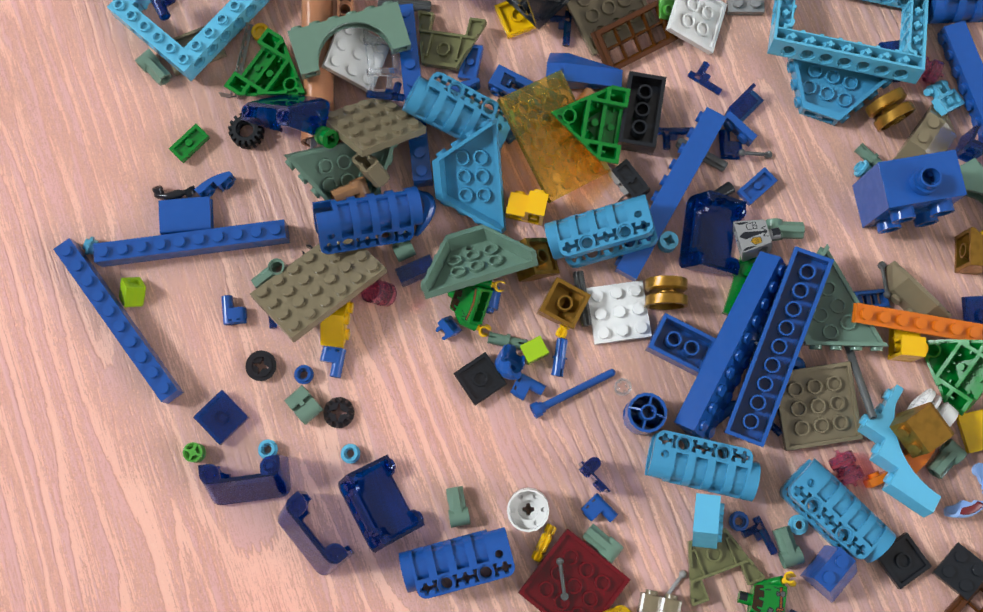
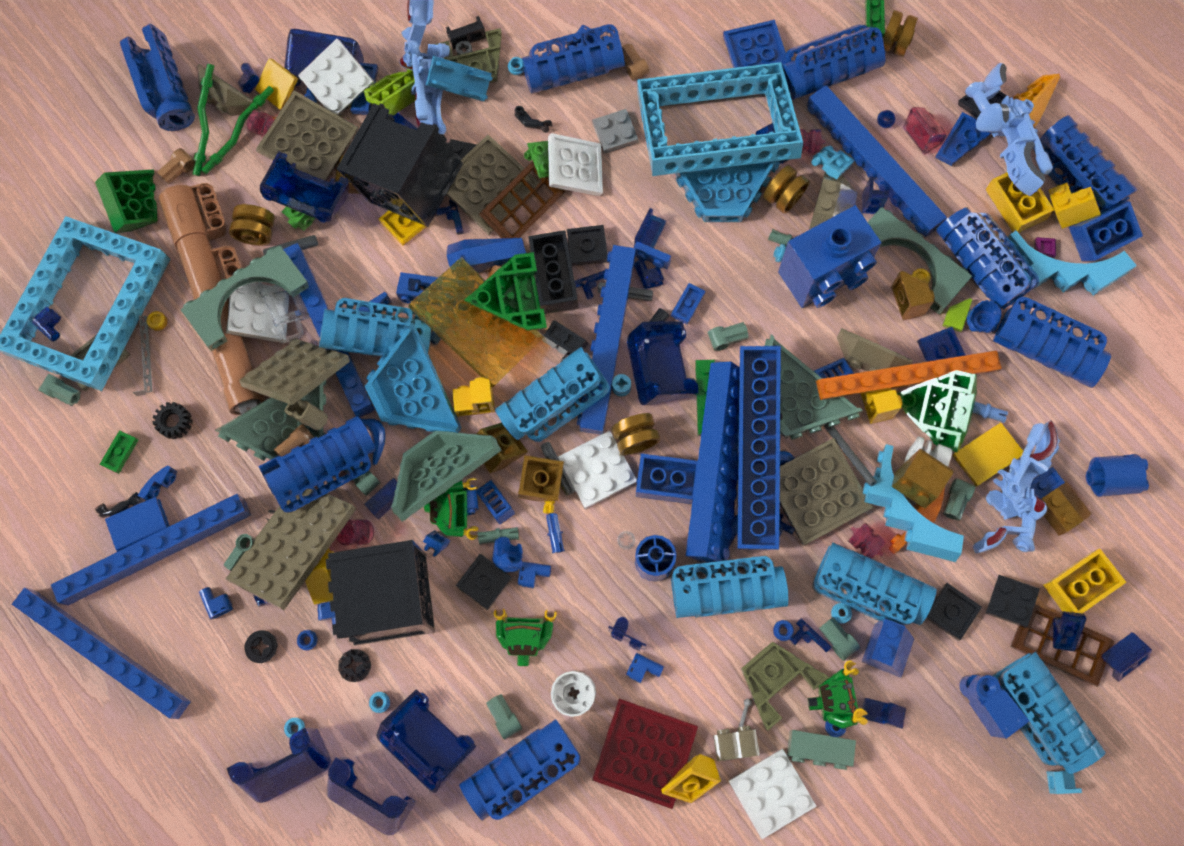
camera: 15 degrees left, 5 degrees down
(88, 245) = (47, 589): medium azure plate -> none
(132, 292) = (106, 619): lime panel -> none
(190, 451) = (215, 758): bright green wheel -> none
(221, 417) = (236, 712): clear blue plate -> none
(269, 71) = (177, 355): green wedge -> none
(291, 111) = (213, 384): clear blue windscreen -> none
(303, 405) = (316, 670): sand green piece -> none
(321, 137) = (251, 398): green wheel -> none
(385, 357) = (380, 593): none -> black container
(389, 94) = (303, 336): clear blue hose -> none
(443, 48) = (343, 275): olive wing -> none
(471, 65) = (372, 279): blue plate -> none
(500, 441) = (523, 635): none -> green torso
(519, 320) = (504, 510): none -> blue slope
(534, 350) = (527, 535): lime panel -> none
(540, 408) = (552, 589): blue piece -> none
(543, 543) = (601, 721): yellow axle -> none
(564, 596) = (638, 766): dark grey hinge -> none
(606, 545) = (662, 701): sand green piece -> none
(681, 98) = (587, 245): none -> black plate
(704, 77) = (603, 219): clear blue hose -> none
(708, 521) = (751, 640): medium azure brick -> none
(754, 237) = (701, 352): light grey torso -> none
(768, 154) = (688, 270): dark grey hinge -> none
(881, 265) = (832, 337): dark grey hinge -> none

